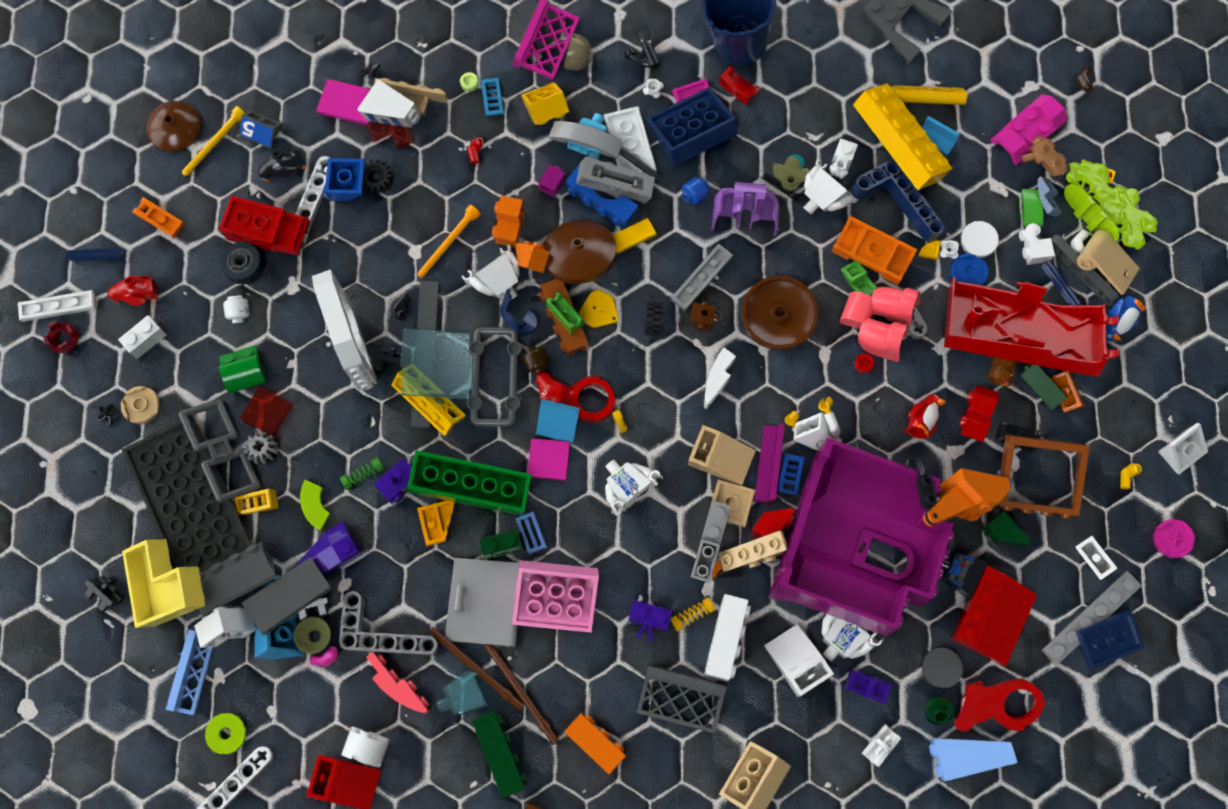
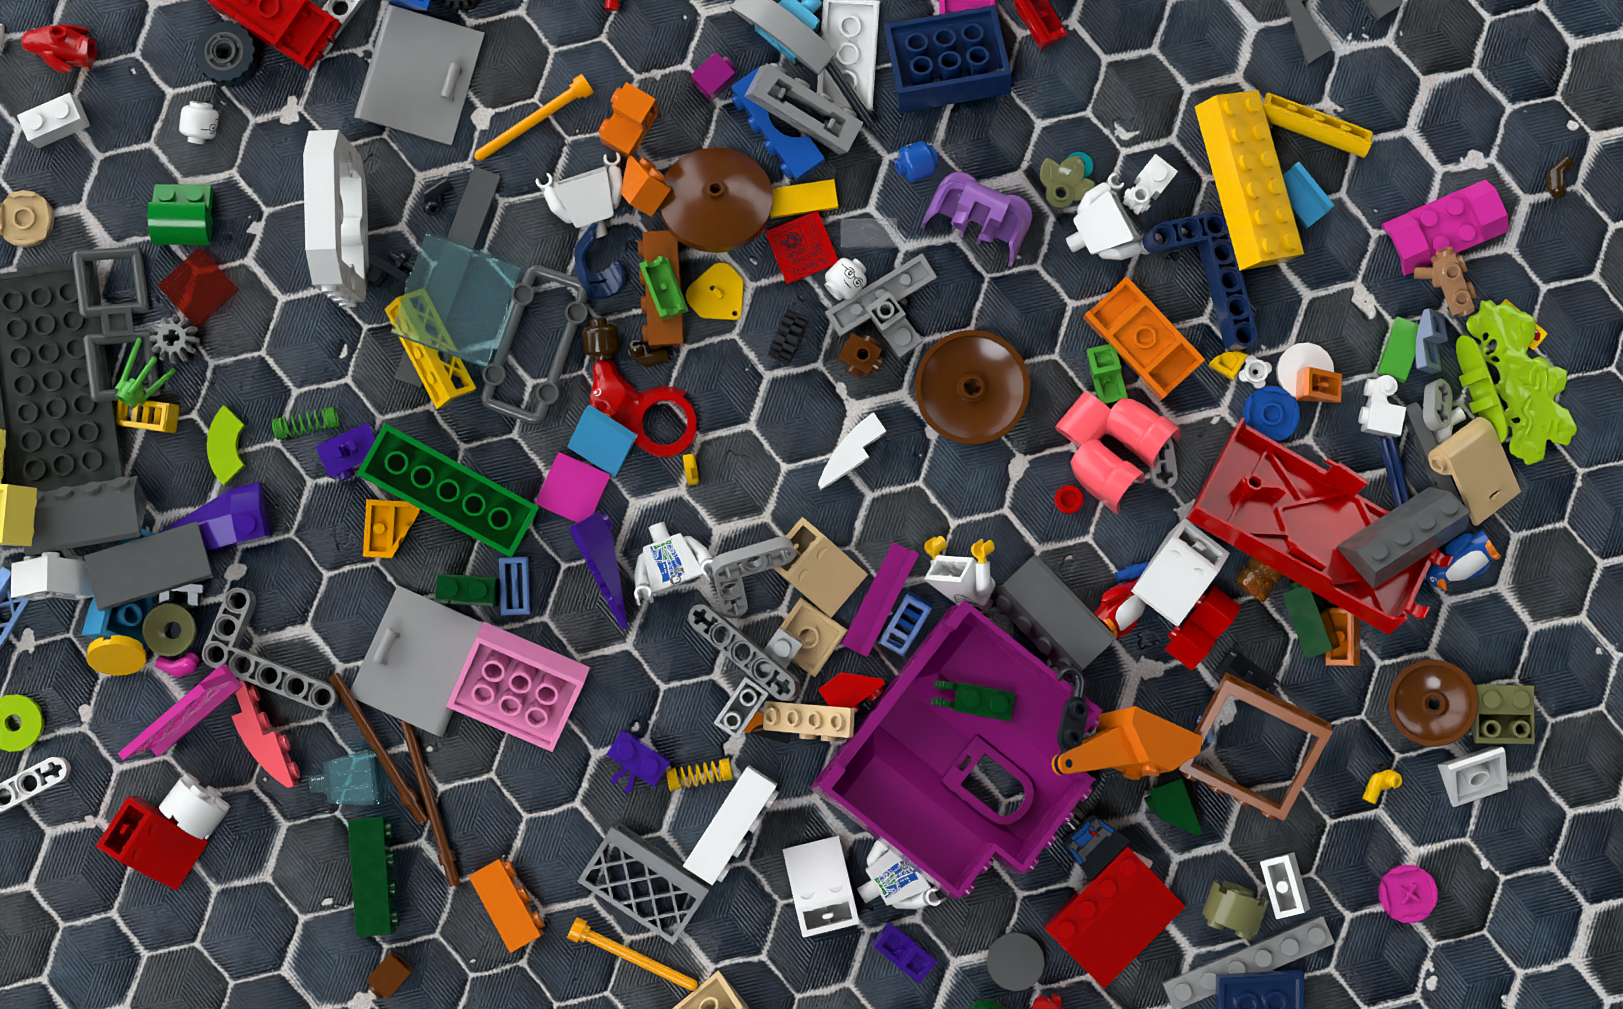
camera: 20 degrees right, 10 degrees up
(242, 488) = (132, 391): none -> bright green plant
(282, 663) = (117, 655): none -> yellow tile
(340, 686) = (185, 714): none -> dark pink fence
(367, 238) = (419, 75): none -> light grey container
(567, 362) = (645, 356): none -> dark brown arm
(578, 491) = (598, 550): none -> dark purple wedge
(642, 265) = (802, 247): none -> red tile
(651, 745) = (582, 932): none -> light orange piece
(672, 471) = (734, 572): none -> light grey beam
(676, 273) = (845, 278): none -> white head
(680, 243) = (869, 233): none -> clear plate
(704, 525) = (757, 654): none -> dark grey beam
(713, 290) = (893, 325): none -> light grey slope
(855, 503) = (976, 700): none -> dark green hinge
(882, 434) = (1052, 616): none -> dark grey slope
(924, 392) = (1131, 572): none -> blue animal
(953, 381) = (1180, 571): none -> white slope
(991, 243) = (1318, 385): none -> orange slope
(1069, 231) = (1437, 405): none -> light grey beam
(1070, 582) = (1234, 908): none -> olive brick
(1083, 312) = (1405, 535): none -> dark grey slope
(1144, 398) = (1415, 690): none -> reddish brown dish
(1185, 403) = (1504, 714): none -> olive slope

